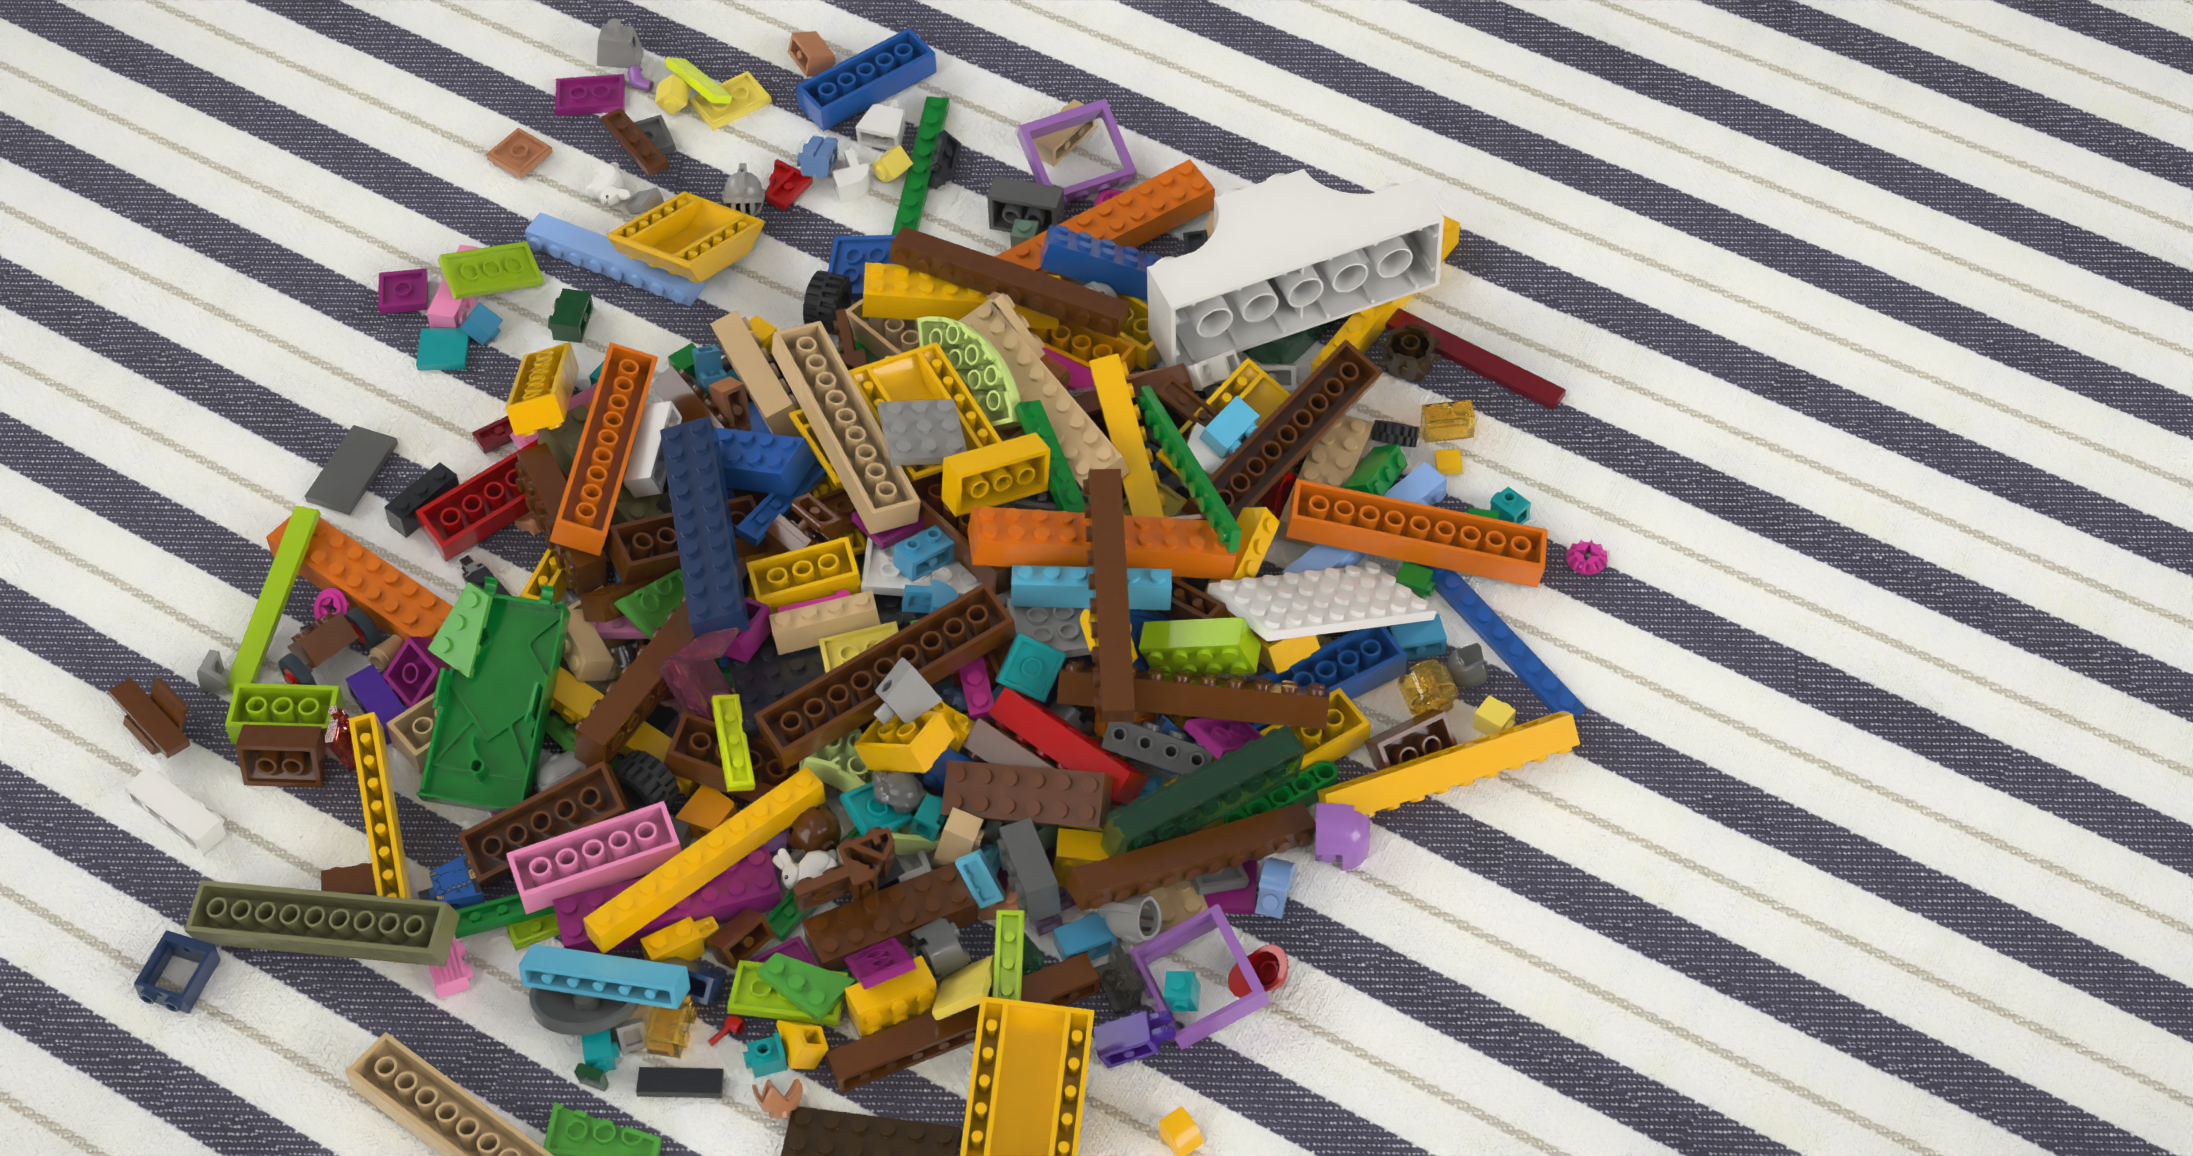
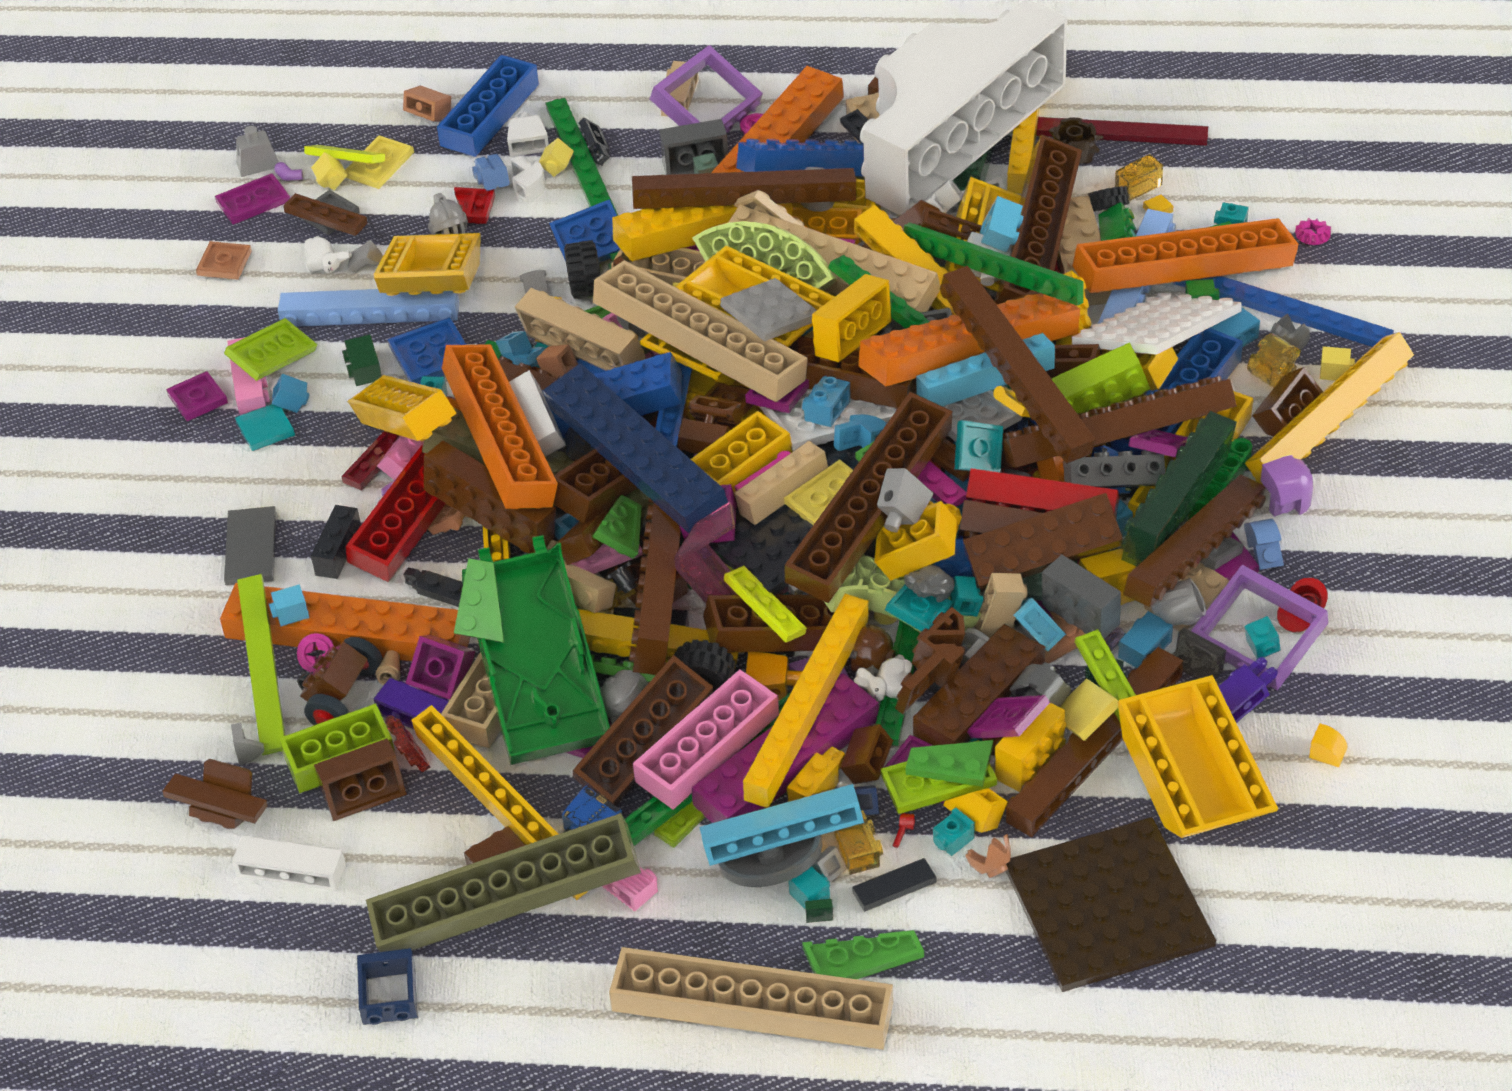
camera: 25 degrees left, 5 degrees down
(324, 552) = (289, 605): none -> medium azure brick
(642, 327) = (423, 349): none -> blue plate
(779, 299) = (534, 280): none -> light grey tile

